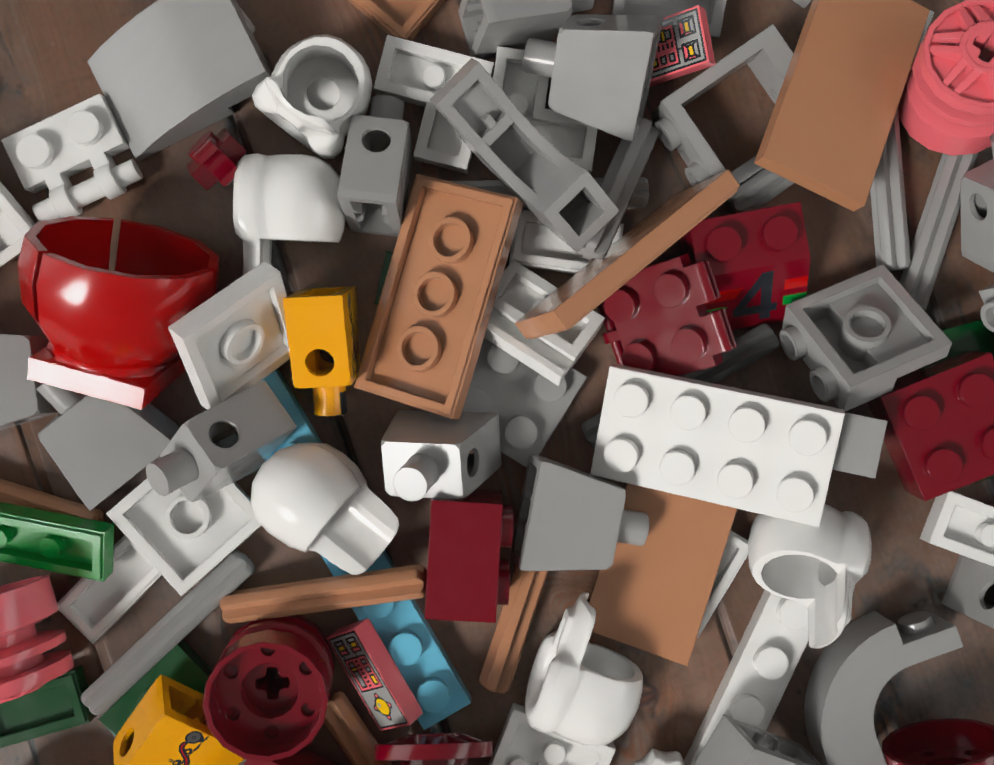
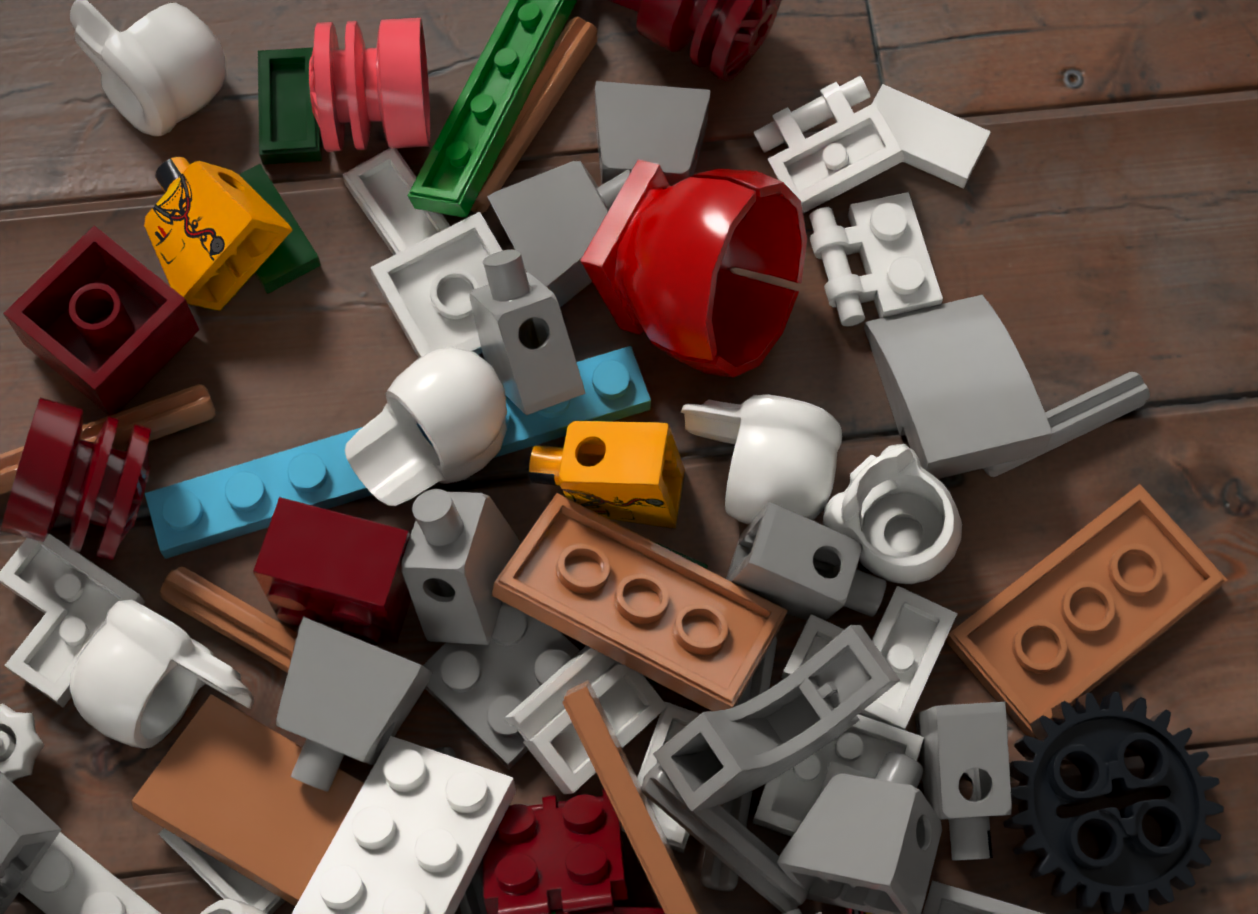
camera: 100 degrees right, 20 degrees down
(167, 633) = (335, 253): light grey axle -> none
(215, 158) = (847, 398): dark red plate -> none
(234, 336) = (638, 368): white plate -> none
(267, 715) = (234, 311): dark red wheel -> none
(325, 594) = (332, 409): nougat axle -> none
(375, 675) = (223, 452): tile -> none

